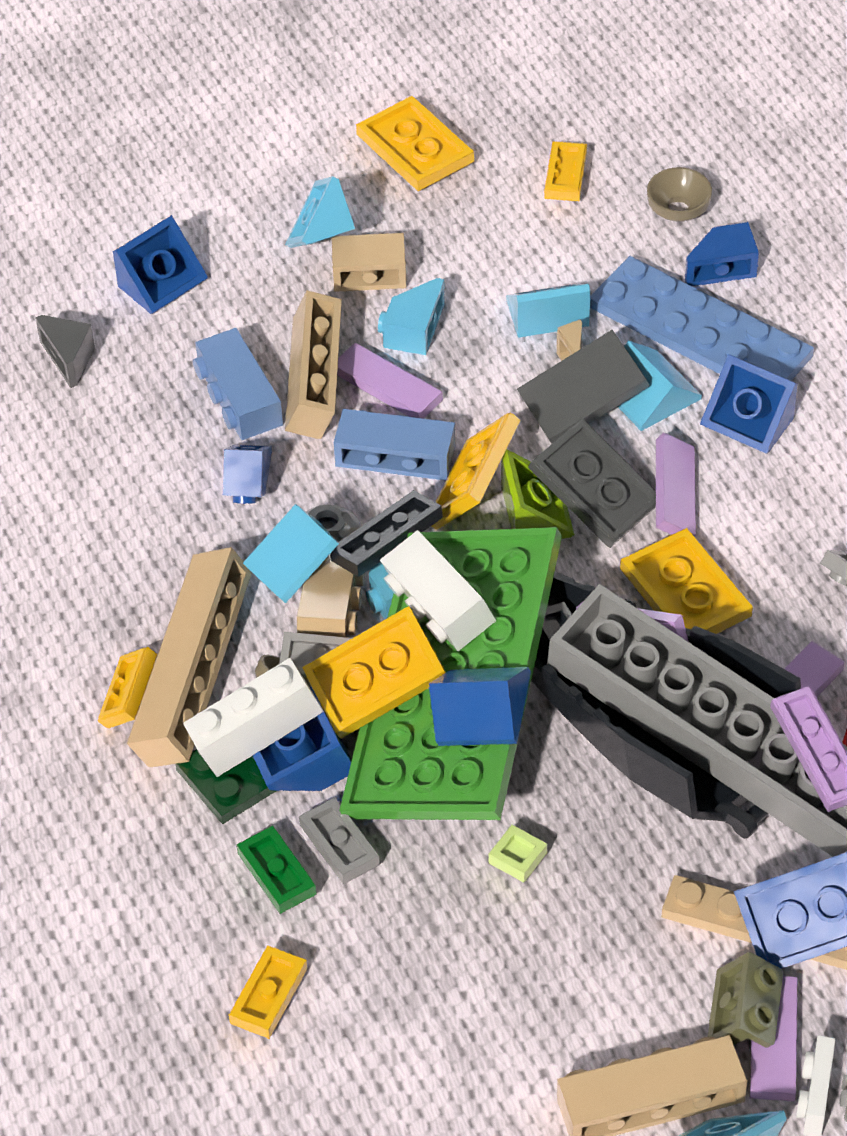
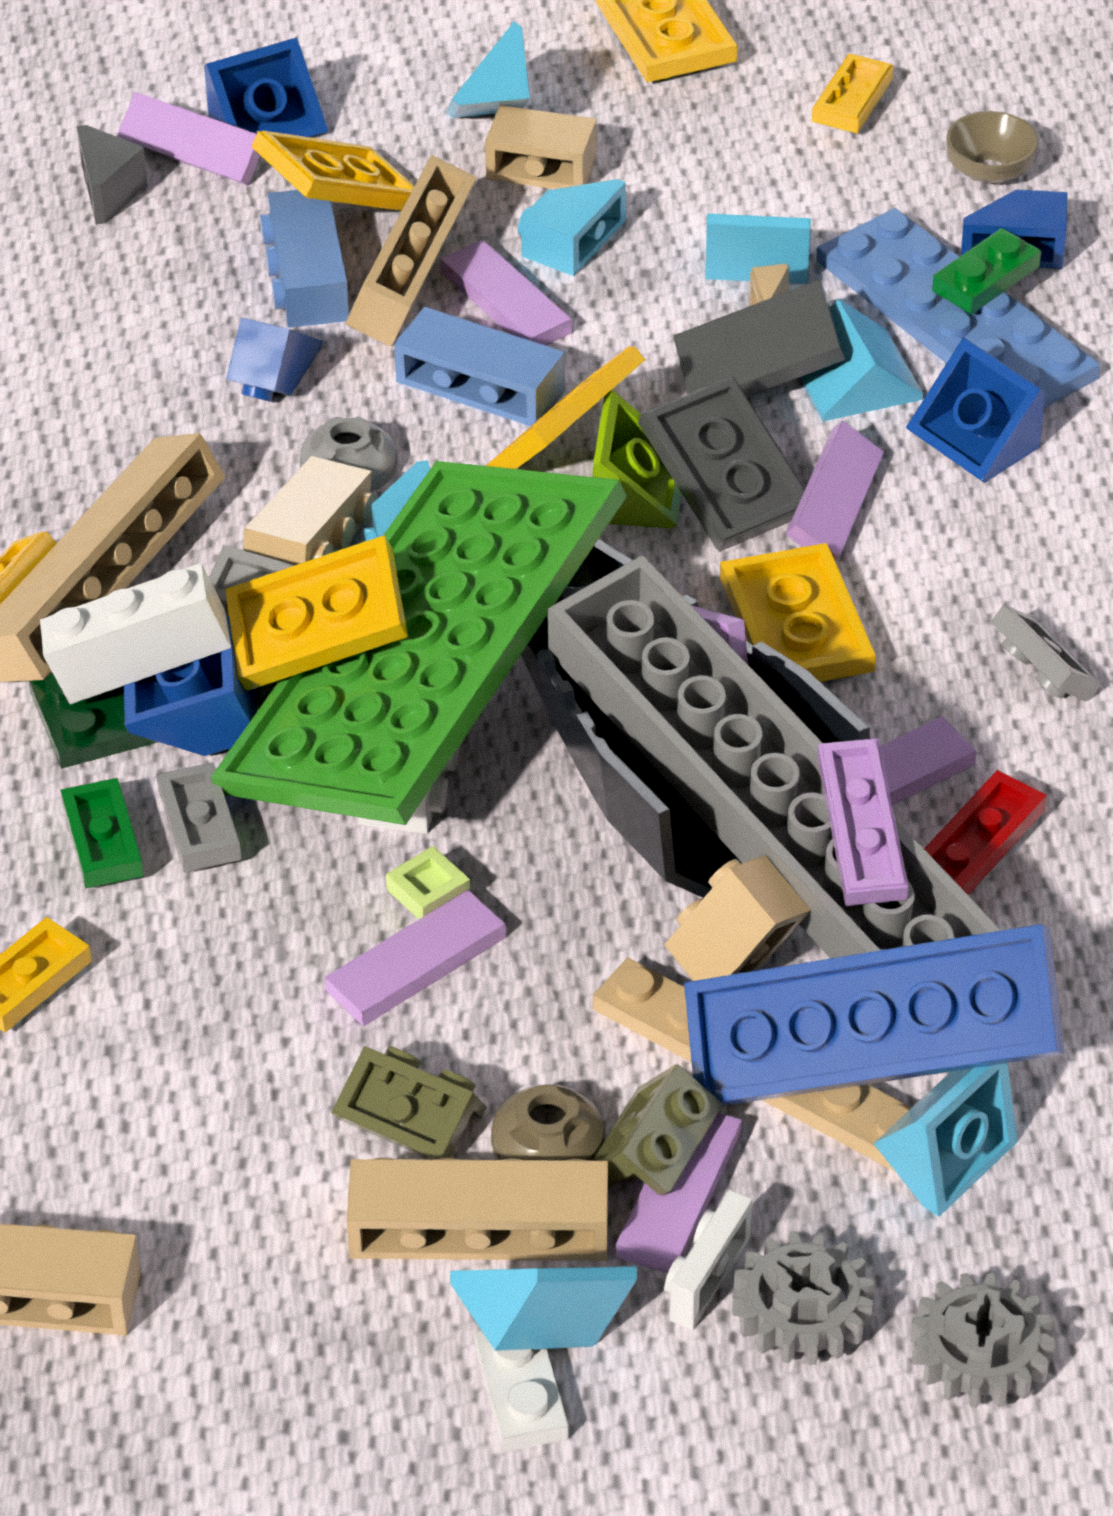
camera: 15 degrees right, 5 degrees down
(116, 306) = (190, 138): none -> lavender tile
(237, 313) = (334, 170): none -> yellow tile
(291, 553) = (272, 451): medium azure slope -> none
(385, 532) = (406, 457): black plate -> none
(436, 592) = (431, 530): white brick -> none
(479, 705) = (426, 675): blue slope -> none
(528, 910) = (415, 957): none -> lavender tile
(571, 1023) = (407, 1105): none -> olive bracket
(658, 1031) = (573, 1137): none -> dark tan piece
(715, 294) = (986, 271): none -> green plate
(750, 839) = (737, 921): none -> tan brick

